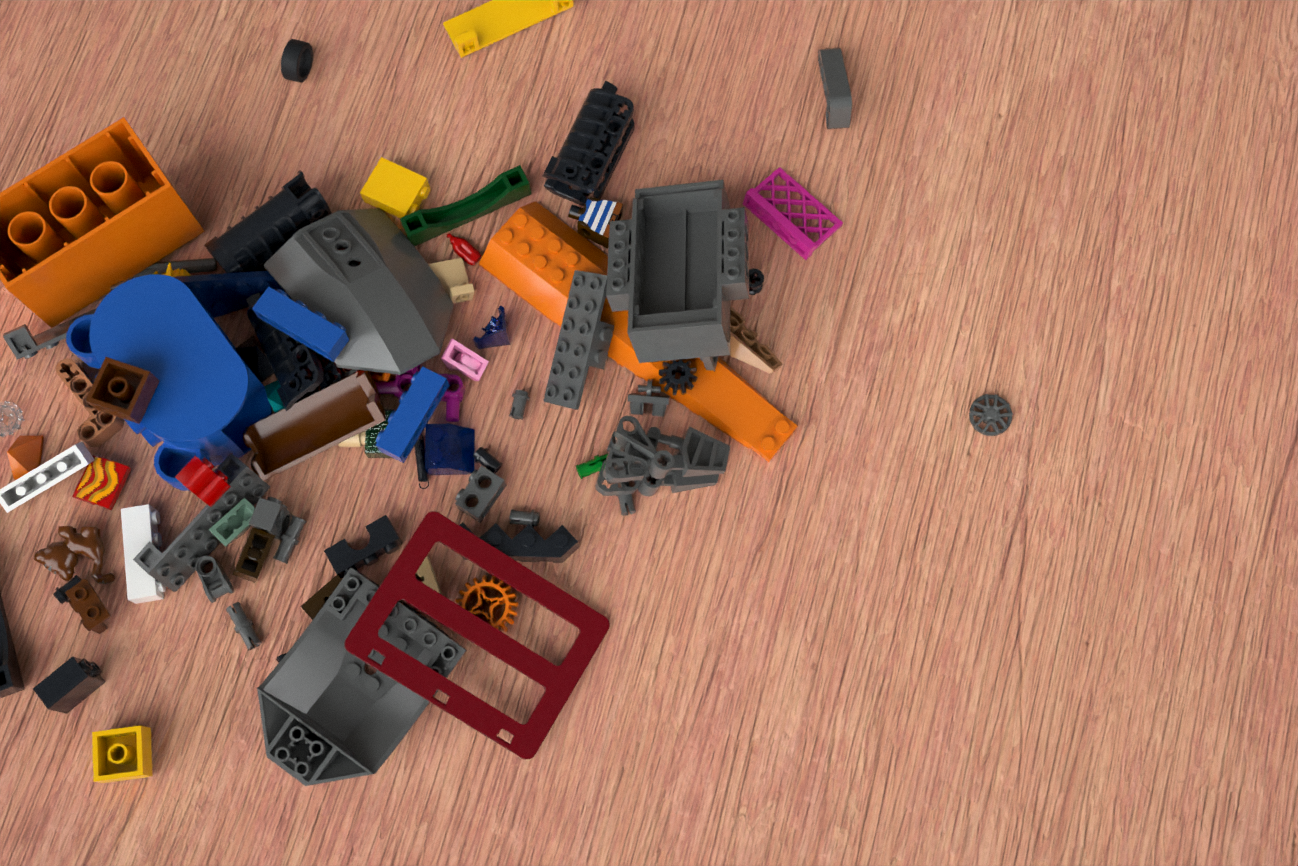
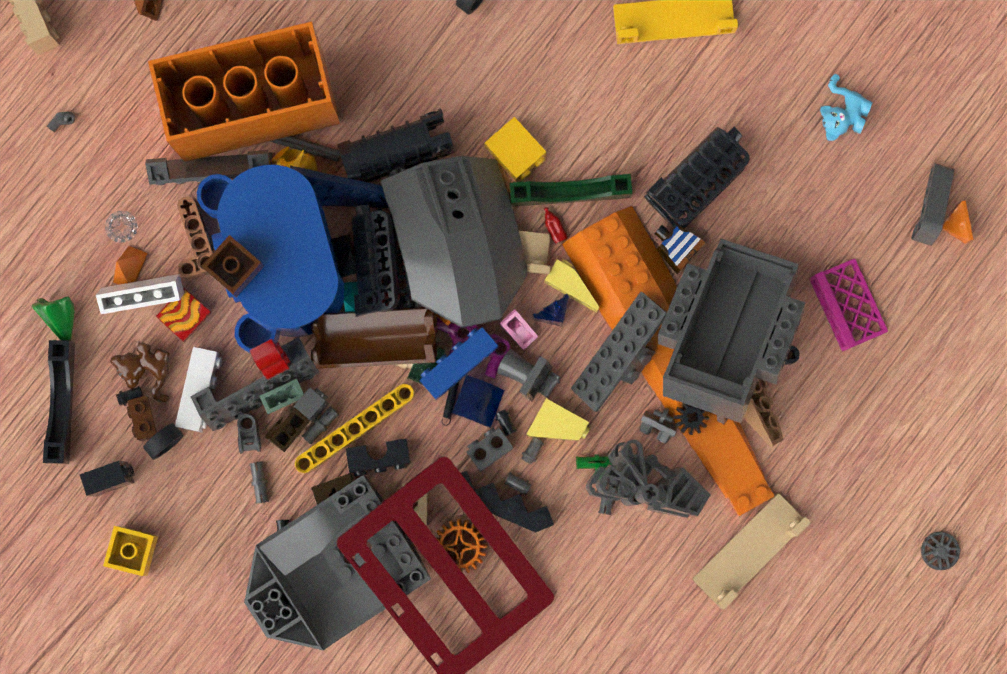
camera: 20 degrees right, 10 degrees up
(120, 621) = (163, 441): none -> black tyre
(301, 324) = (395, 255): blue brick -> none
(317, 534) = (344, 430): none -> yellow beam
(493, 401) = (525, 373): none -> dark grey plant
(494, 292) = (568, 282): none -> light yellow slope
(526, 481) = (532, 450): none -> flat silver pin
(542, 440) = (558, 423): none -> light yellow slope
(708, 46) = (836, 119): none -> medium azure animal
(795, 491) = (750, 551): none -> tan bracket
(868, 97) = (959, 224): none -> orange slope

